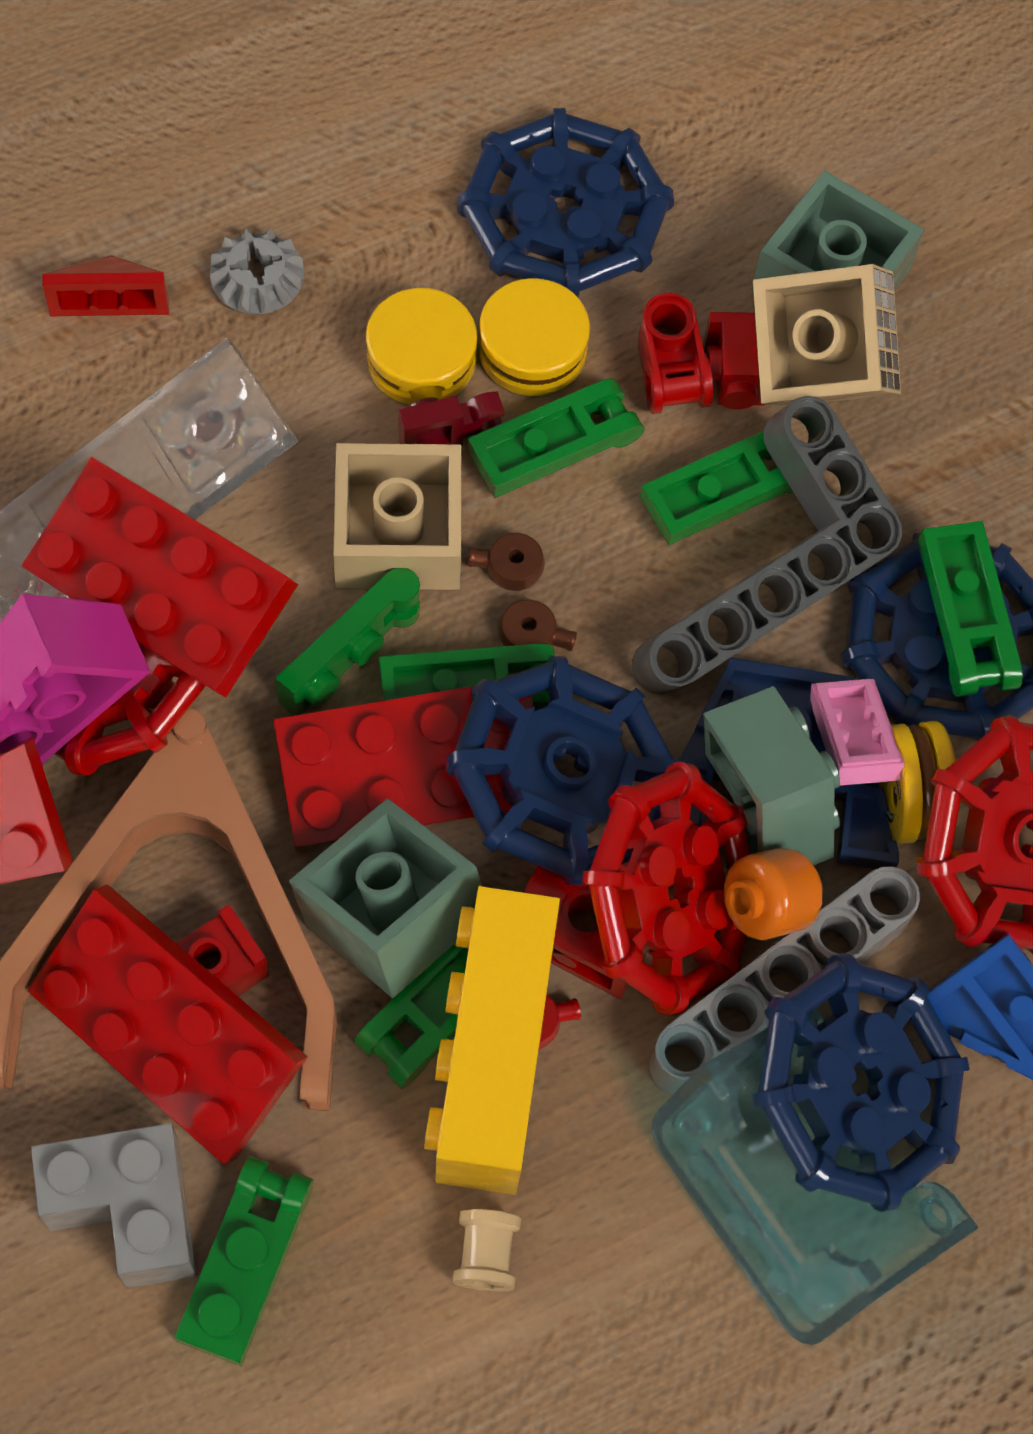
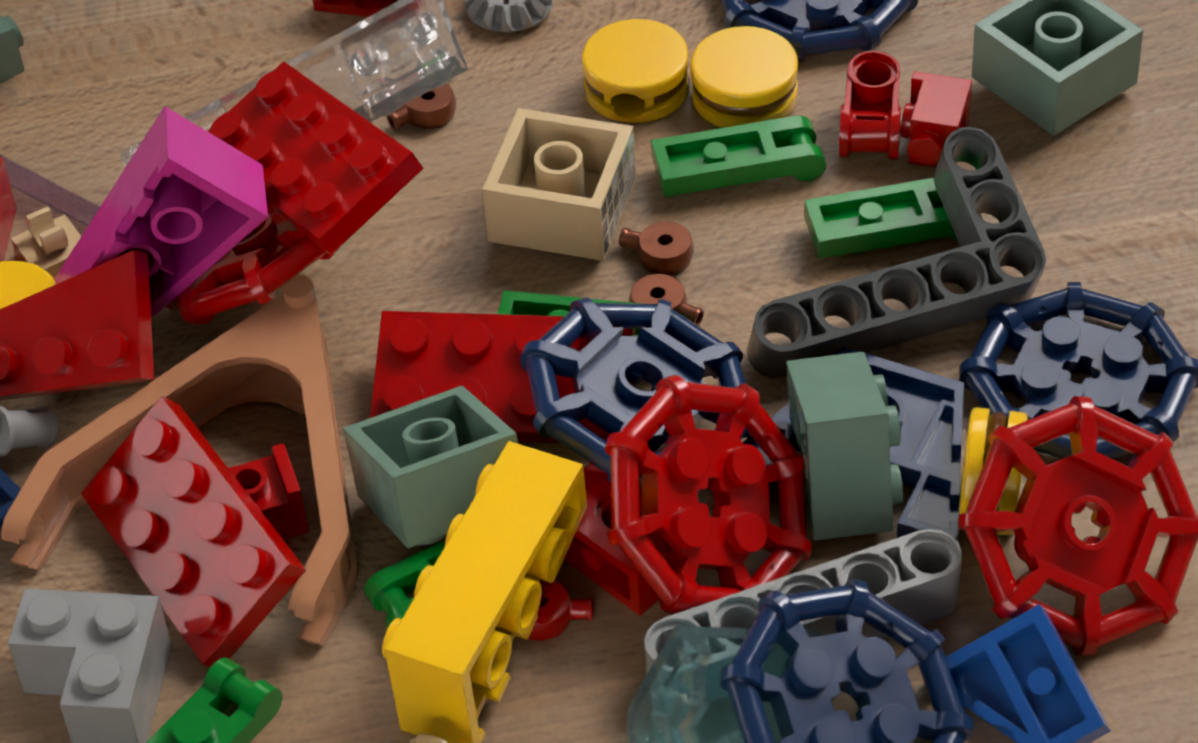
camera: 25 degrees right, 20 degrees down
(349, 640) = (485, 270): green plate -> none
(447, 420) = (646, 124): dark red plate -> none
(772, 893) = (807, 523): orange head -> none
(827, 335) = (1016, 83): tan brick -> none
(856, 731) = (938, 409): bright pink plate -> none
(970, 607) = (1095, 334): green plate -> none

